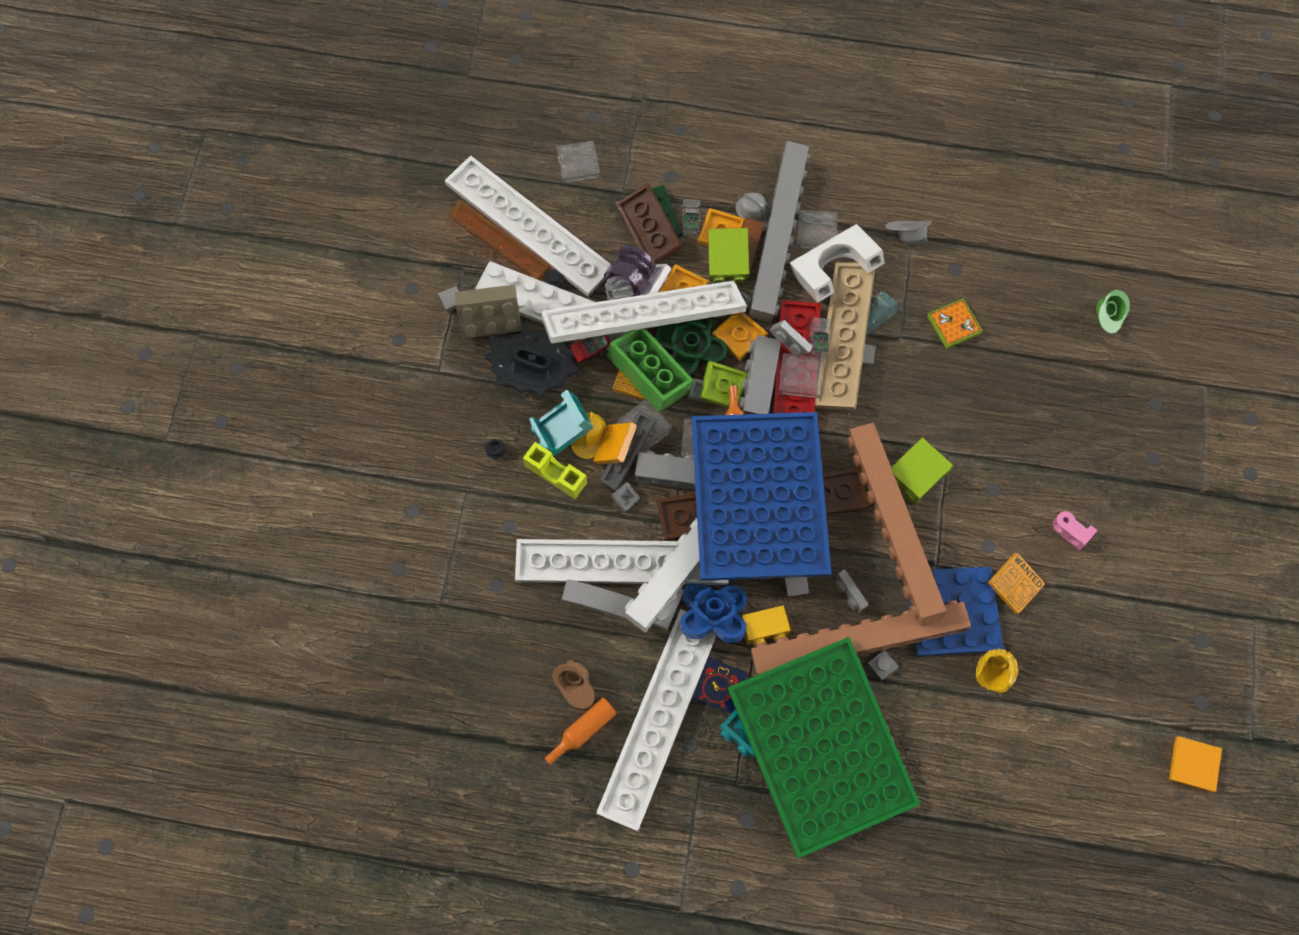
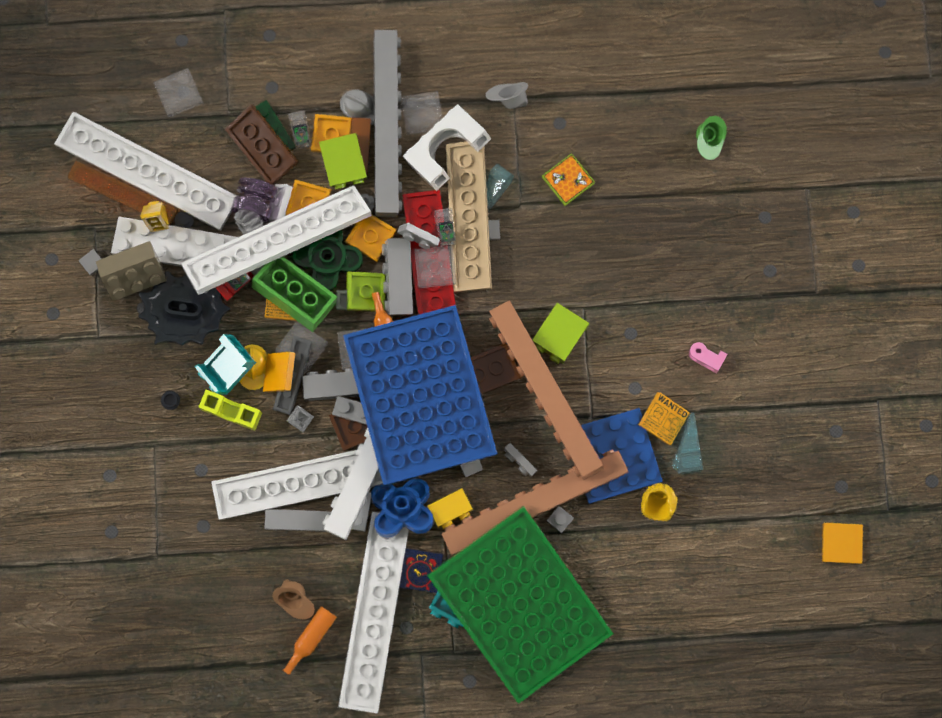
camera: 15 degrees left, 10 degrees up
(525, 265) = (155, 216): none -> yellow slope
(680, 498) = (349, 410): none -> light grey plate
(1037, 625) = (688, 453): none -> clear light blue slope

